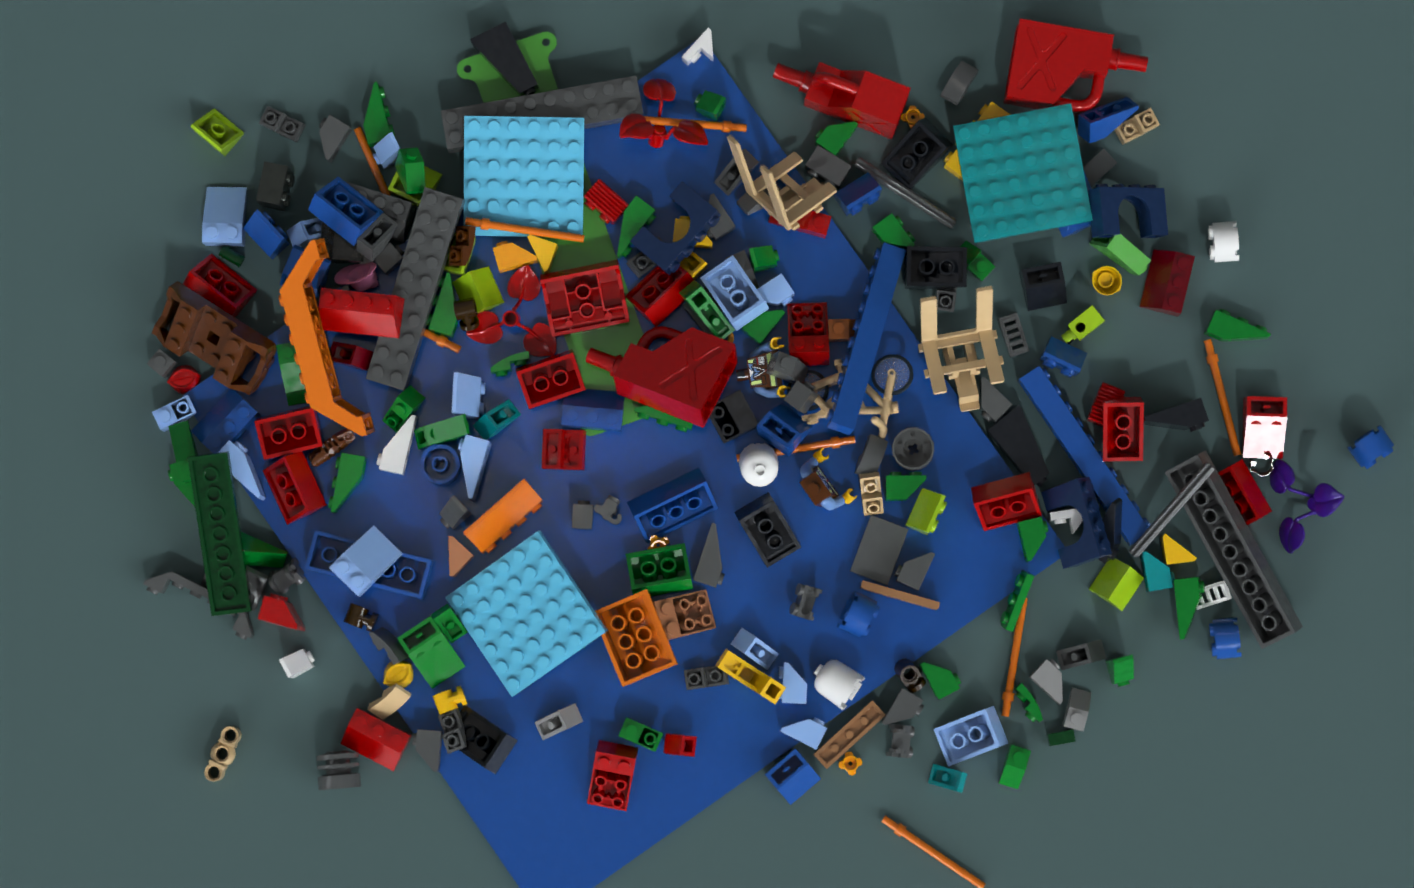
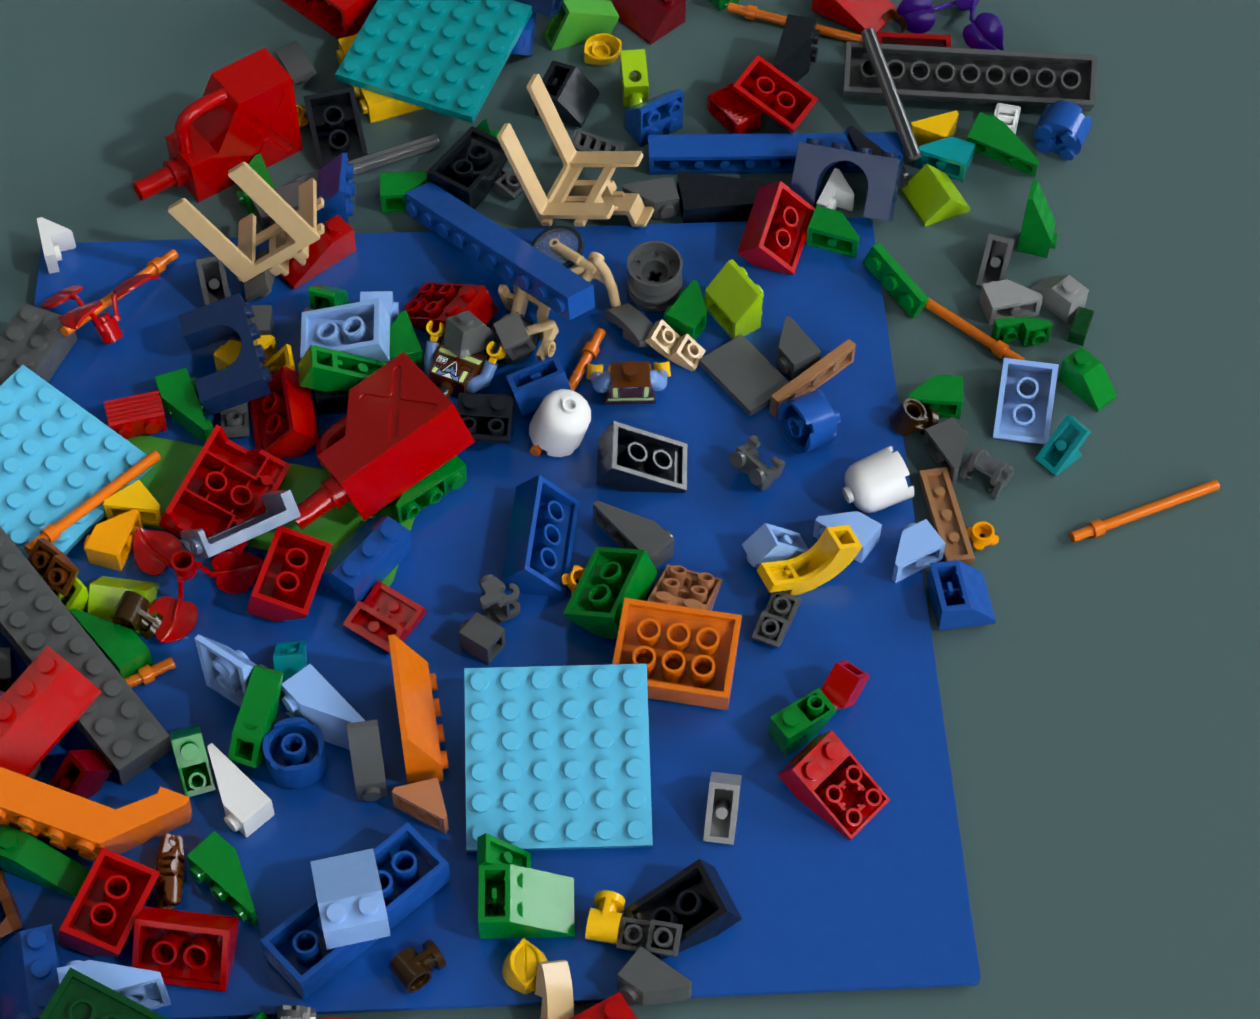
camera: 60 degrees left, 30 degrees down
(384, 639) = (470, 953): dark grey slope -> none
(504, 366) = (233, 616): green slope -> none
(555, 334) = (280, 510): none -> sand blue panel
(710, 105) = (120, 259): green slope -> none
(840, 329) = (470, 272): dark orange slope -> none

